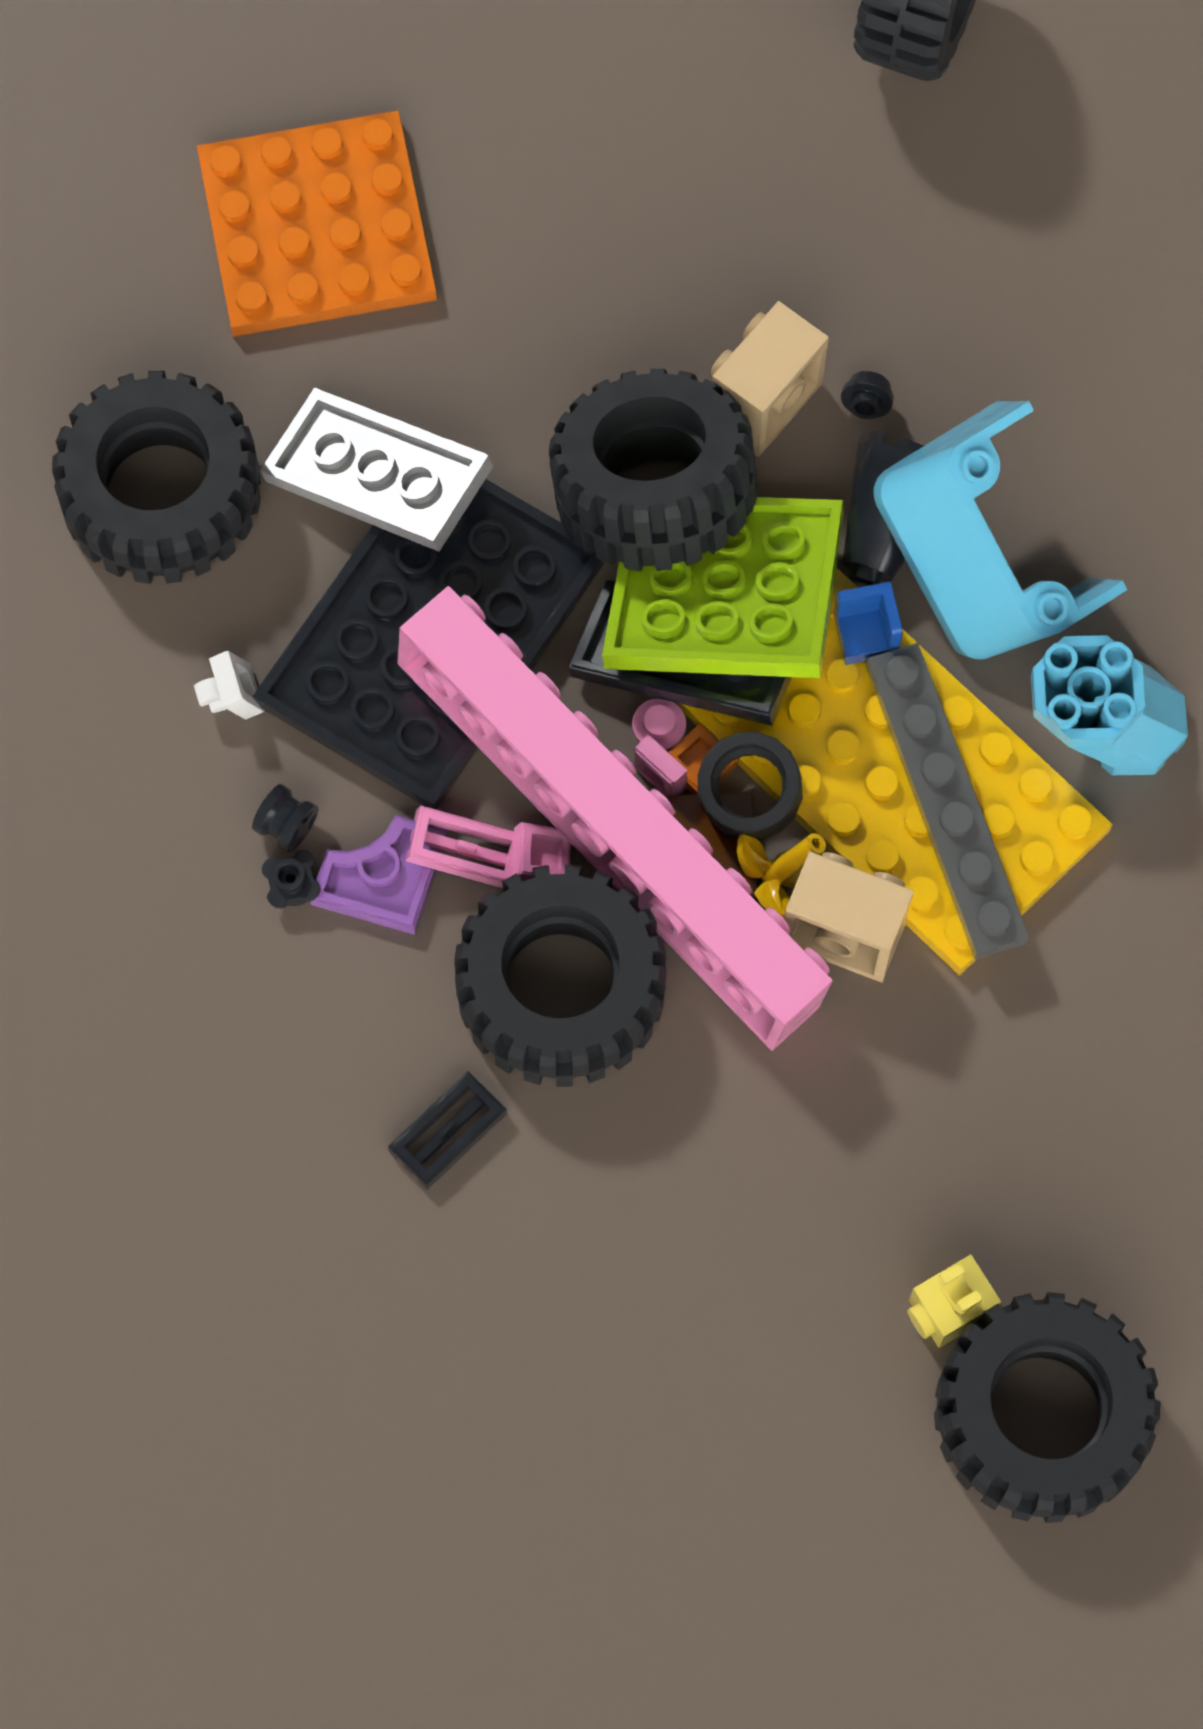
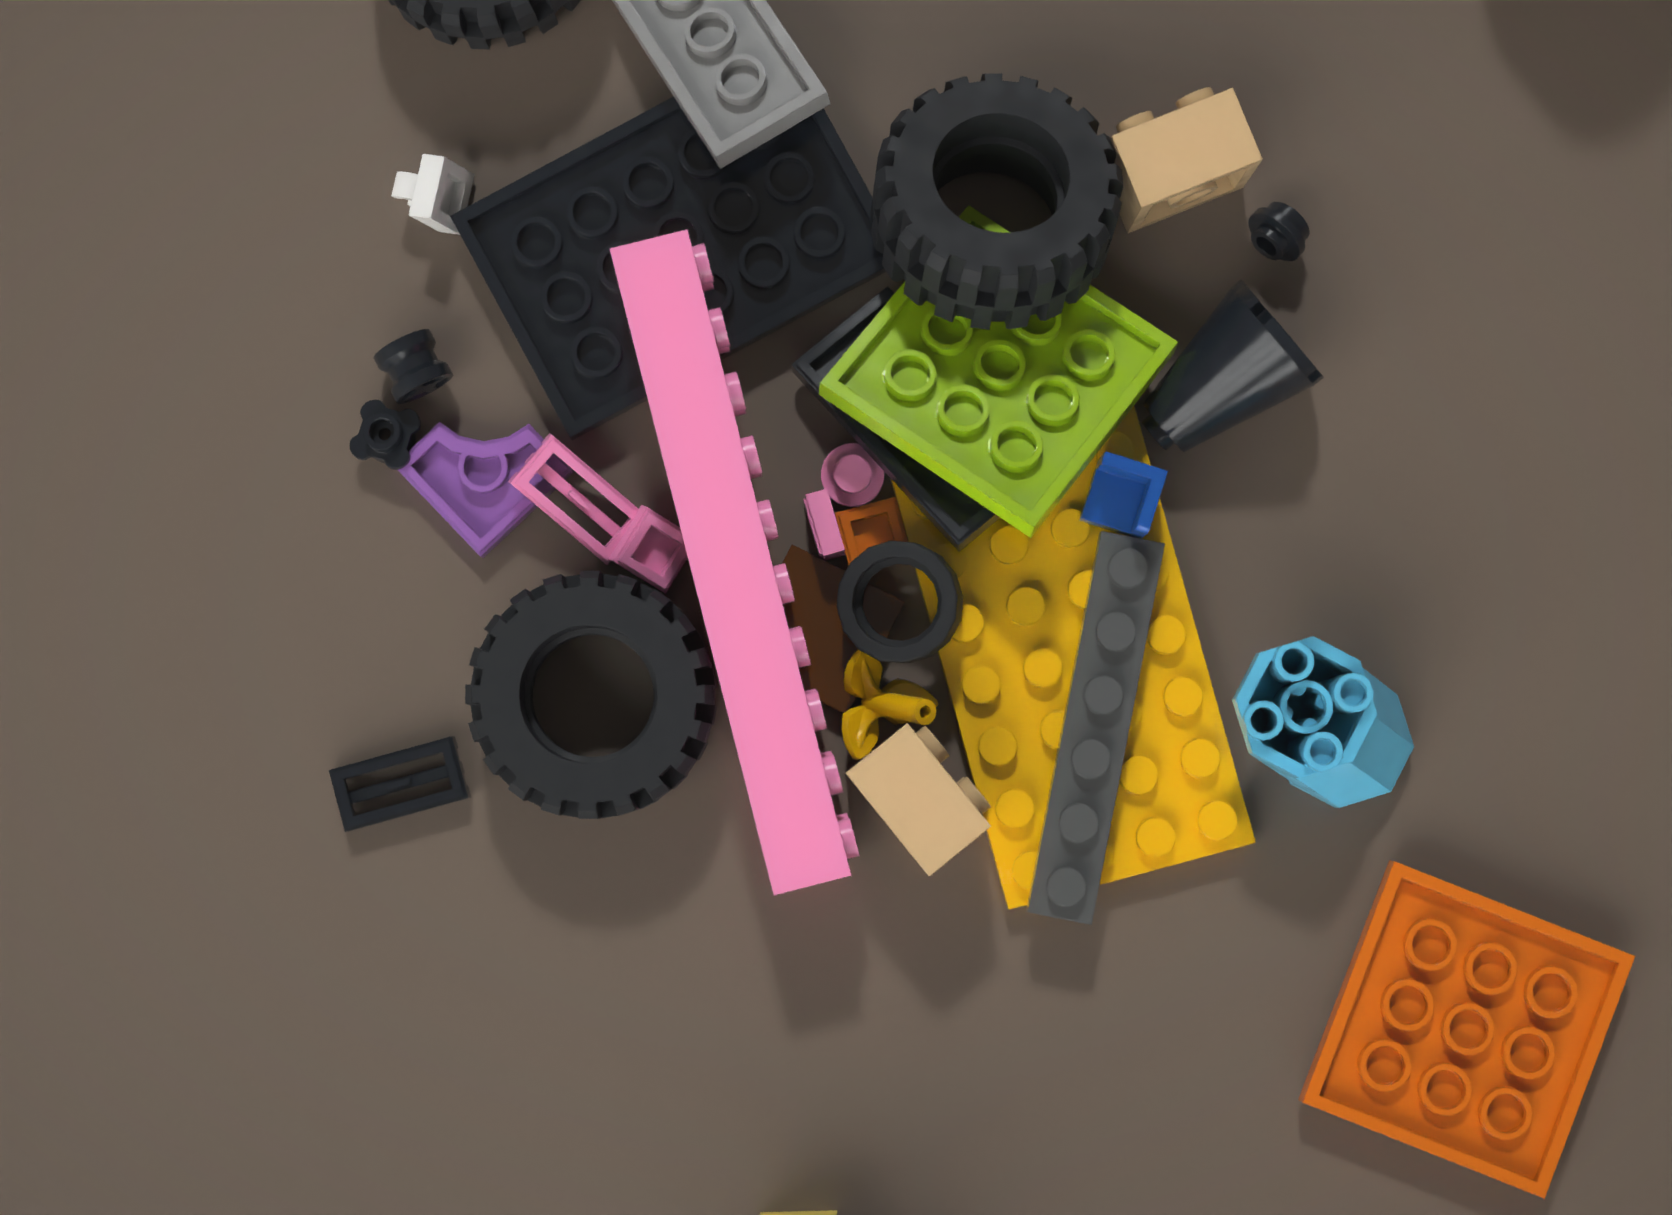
camera: 30 degrees right, 15 degrees up
(954, 553) = (1256, 415): medium azure windscreen -> none

